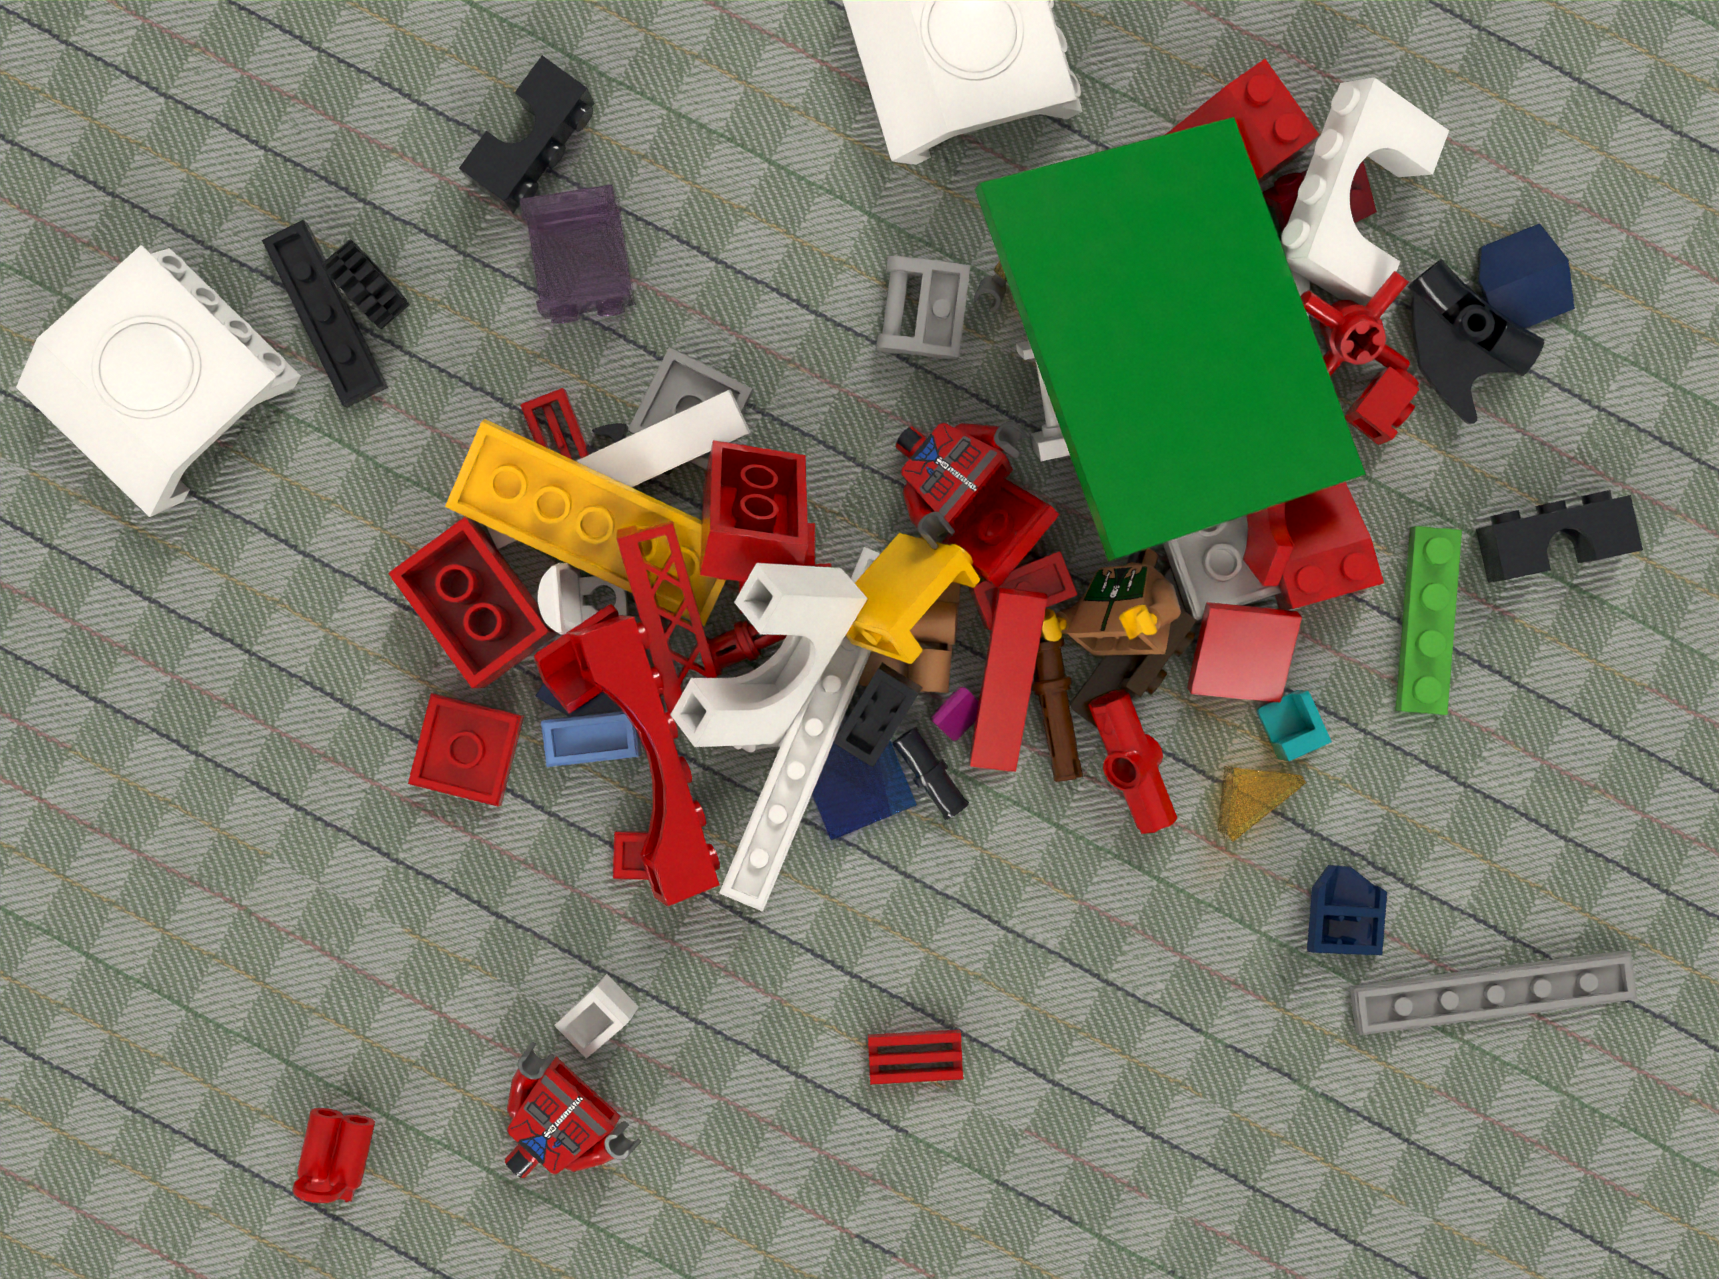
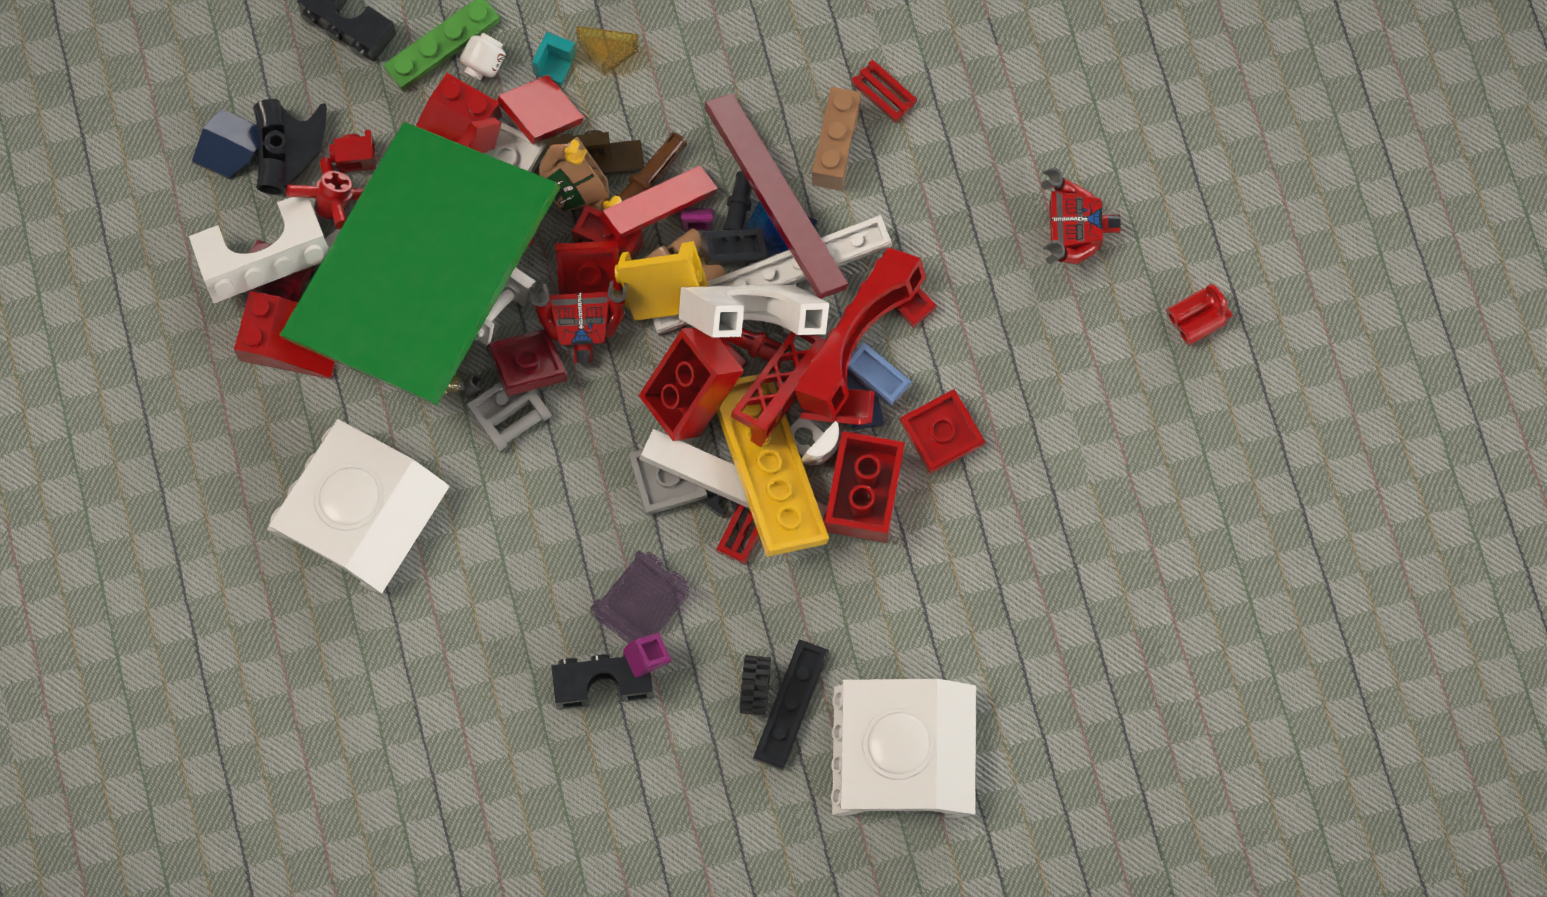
camera: 135 degrees left, 15 degrees down
(500, 196) = (646, 654): none -> magenta slope
(597, 1016) = (1010, 251): white slope -> none
(893, 816) = (776, 196): none -> tile
(903, 951) = (836, 138): none -> medium nougat arch
(957, 370) = (526, 362): none -> dark red tile
(1133, 761) = (642, 113): red piece -> none
(1368, 647) = (482, 56): none -> white head

